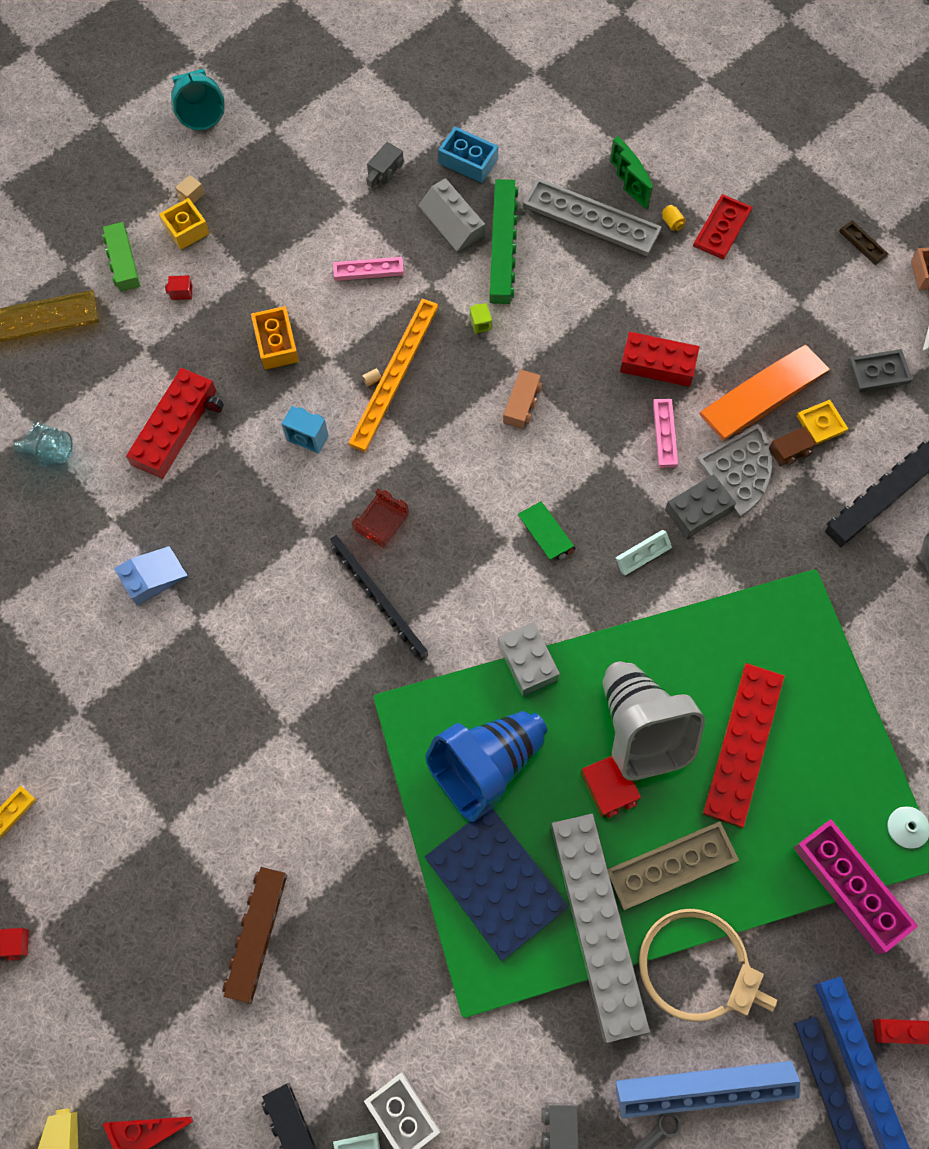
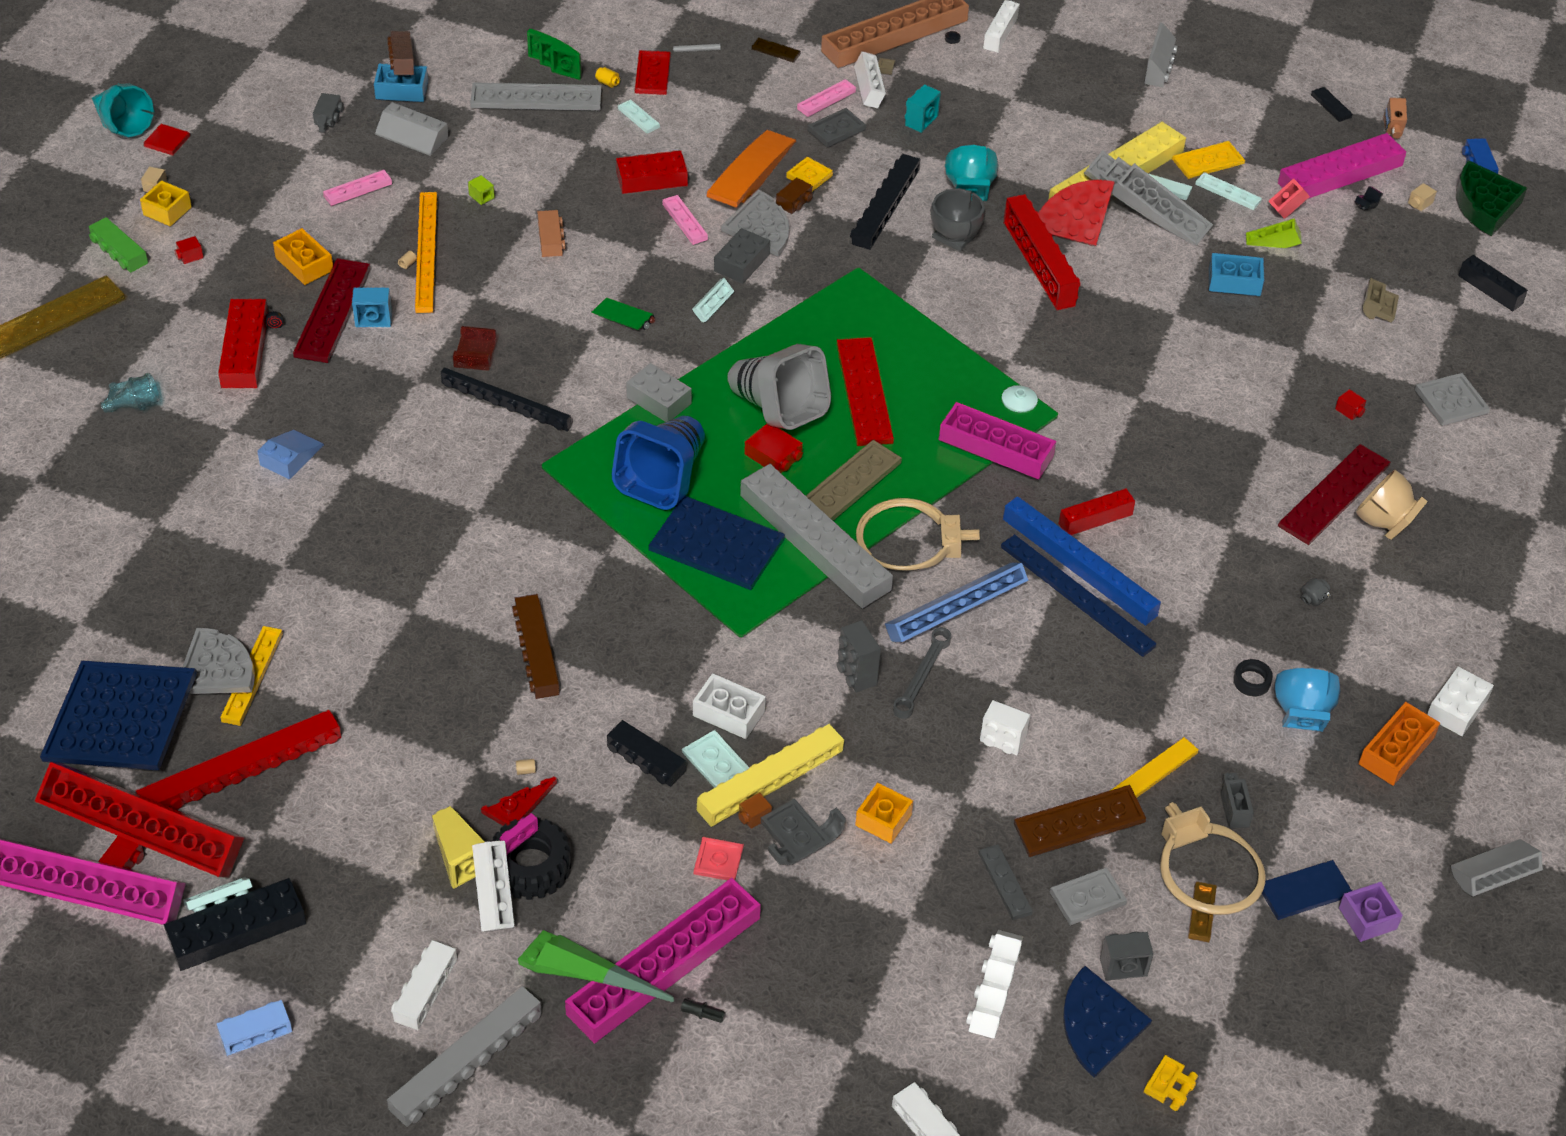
camera: 30 degrees left, 20 degrees down
(172, 1086) = (525, 766): none -> tan hinge
(227, 143) = (166, 139): none -> red tile
(264, 420) = (331, 311): none -> dark red plate
(480, 121) = (400, 53): none -> reddish brown brick
(502, 242) = (468, 133): green brick -> none
(682, 278) = (638, 116): none -> light aqua tile
(781, 210) = (687, 48): none -> light grey piece
(887, 326) = (826, 98): none -> bright pink plate

